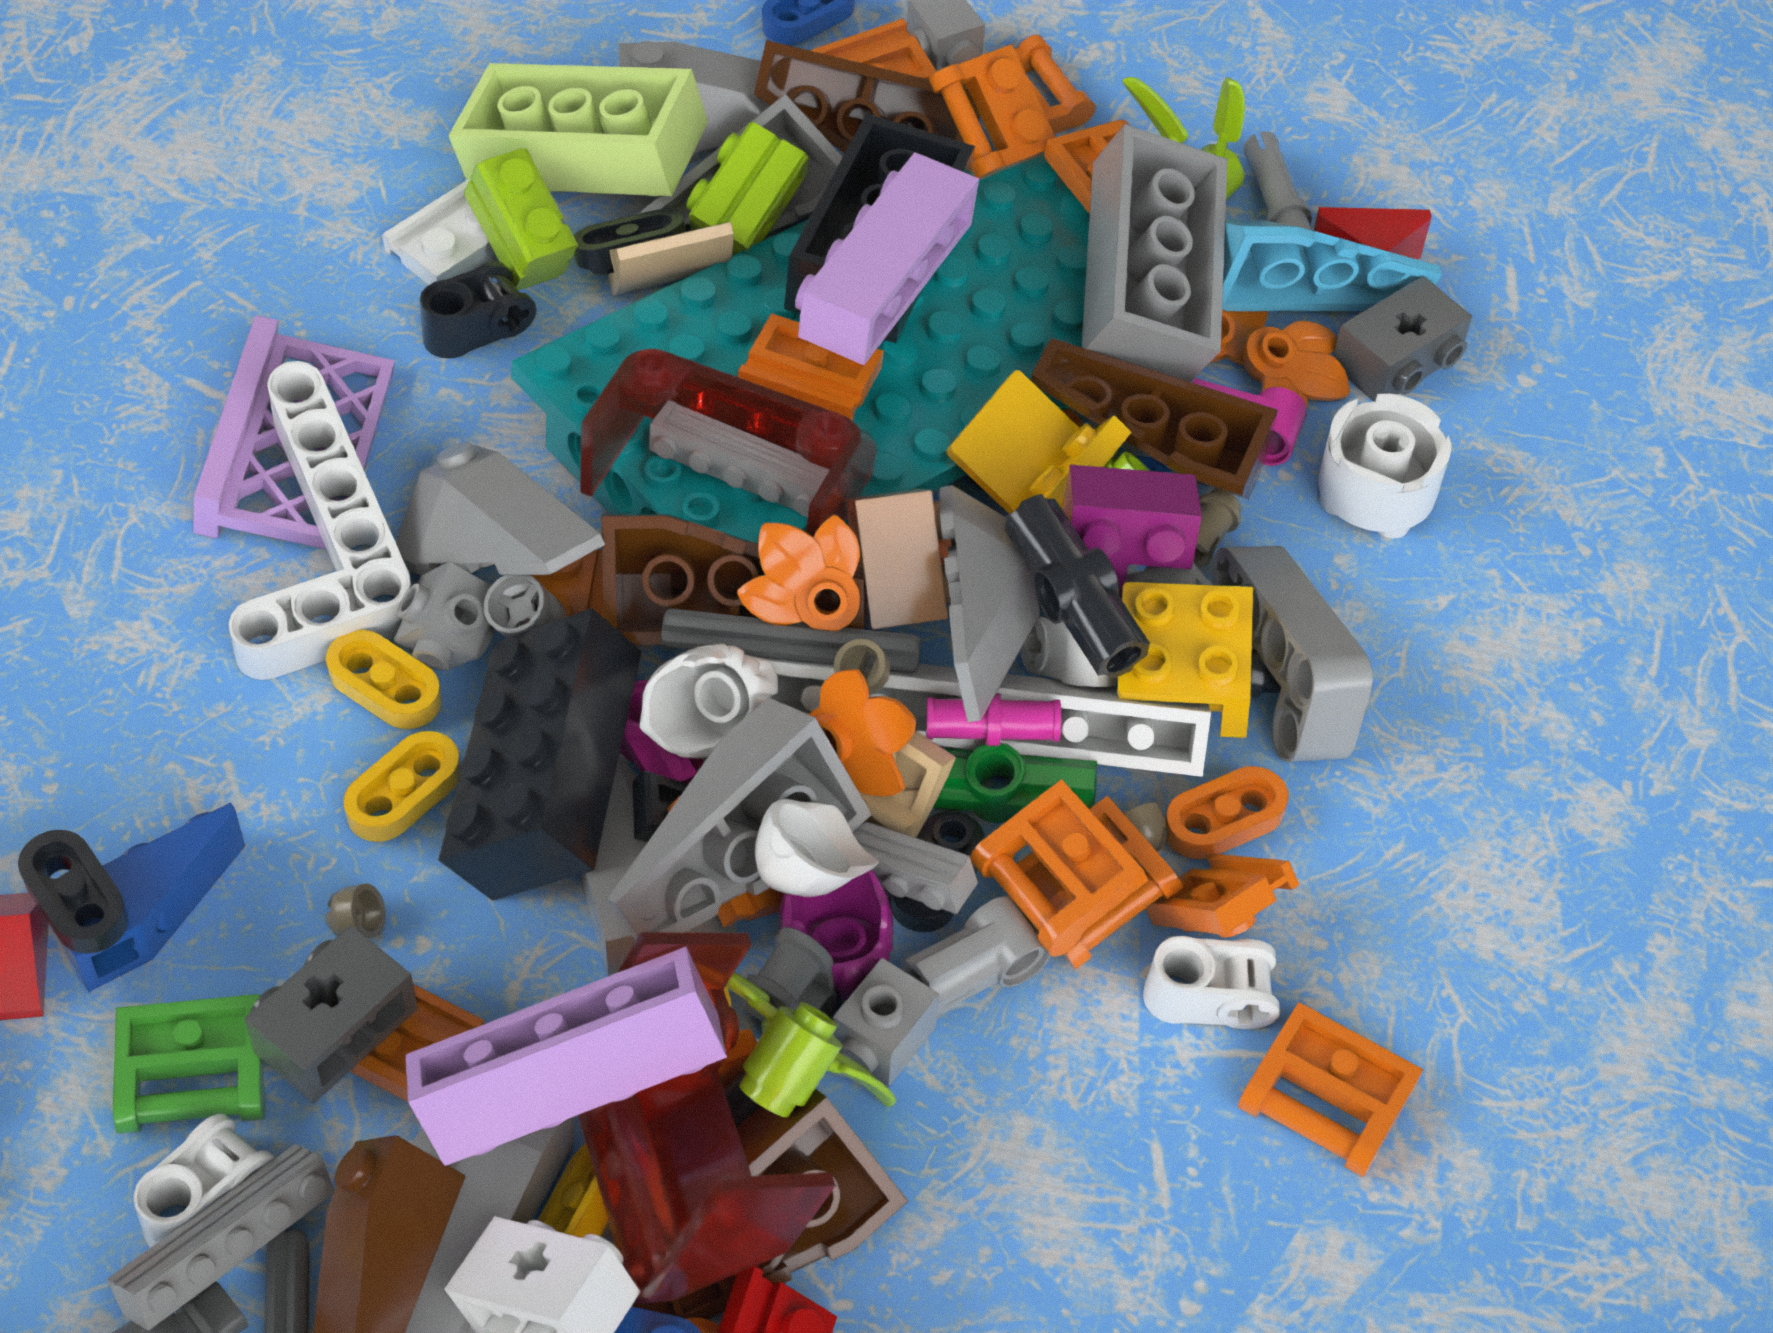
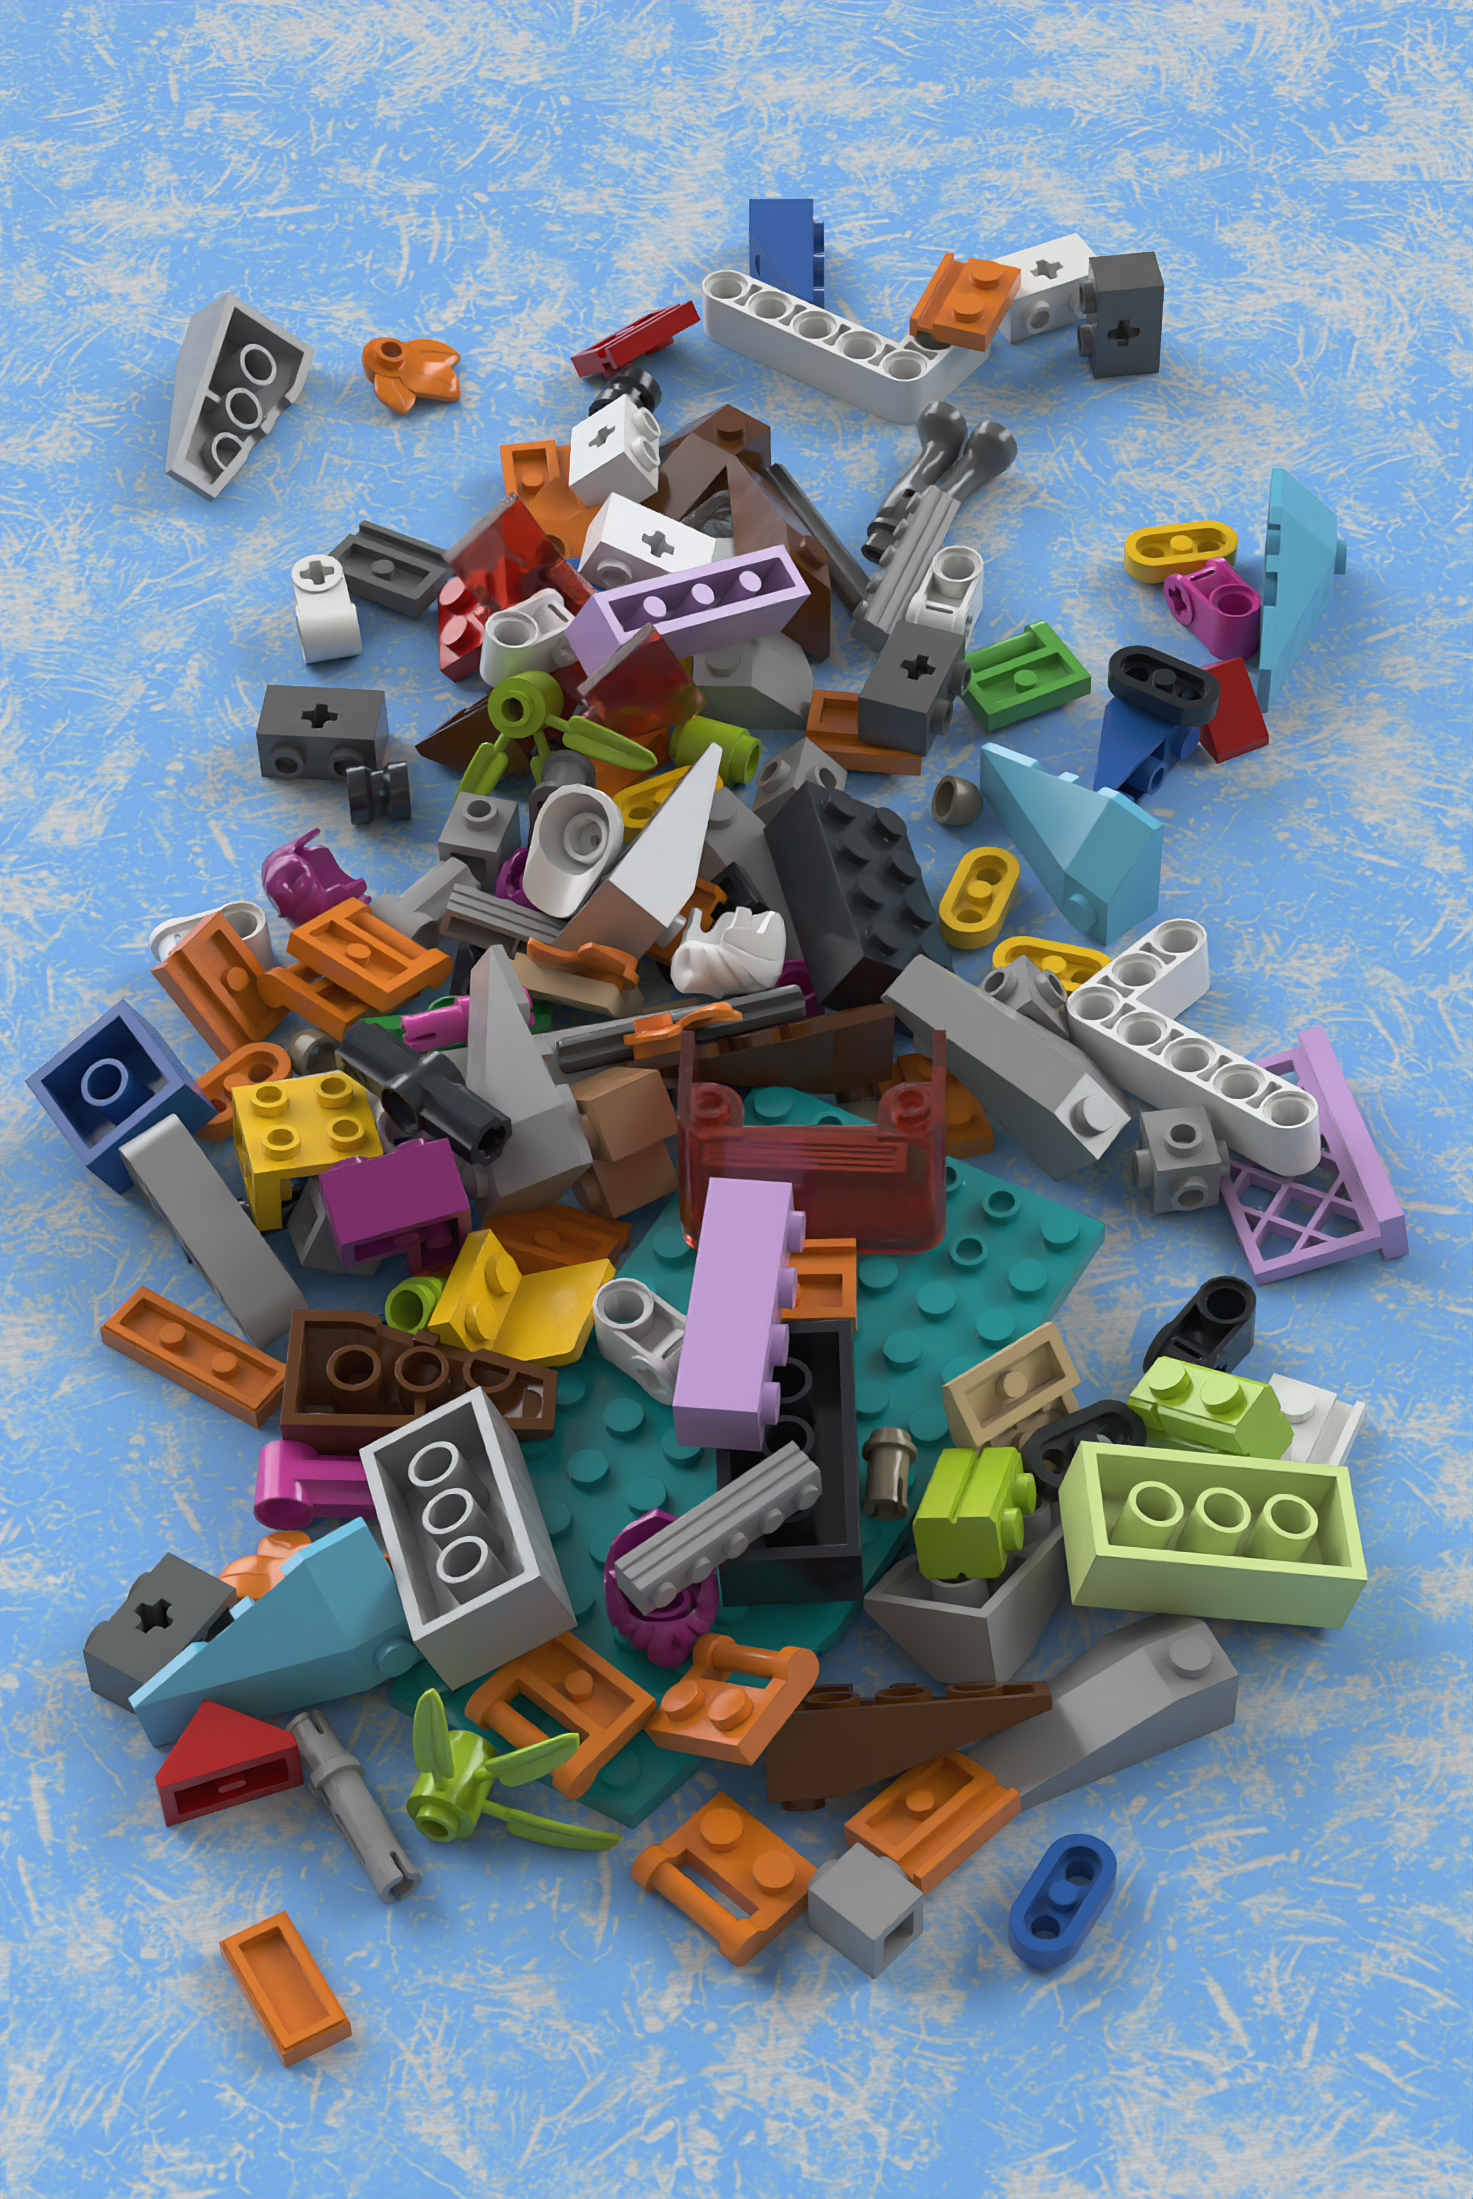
camera: 165 degrees right, 5 degrees down
(284, 779) = (1085, 846): none -> medium azure wedge
(397, 441) = (1180, 1159): none -> light grey brick
(520, 950) = (788, 771): none -> light grey brick
(745, 1137) = (527, 638): none -> white piece
(788, 226) = (888, 1460): none -> dark tan pin
(856, 655) = (598, 997): dark tan hinge -> none
(944, 367) = (647, 1347): none -> white piece
(972, 1133) = (364, 793): none -> black wheel
(973, 140) = (718, 1528): none -> light grey piece
(1015, 198) = (667, 1631): none -> magenta hair
(1029, 1276) = (320, 731): none -> dark grey brick
(1090, 993) = (307, 881): none -> magenta hair
(1341, 1071) = (92, 914): orange plate -> none
(1348, 593) = (197, 1356): none -> orange tile
(1351, 789) = (114, 1087): none -> blue brick
(1357, 122) = (285, 1989): none -> orange tile
(1383, 464) = (153, 1453): white brick -> none

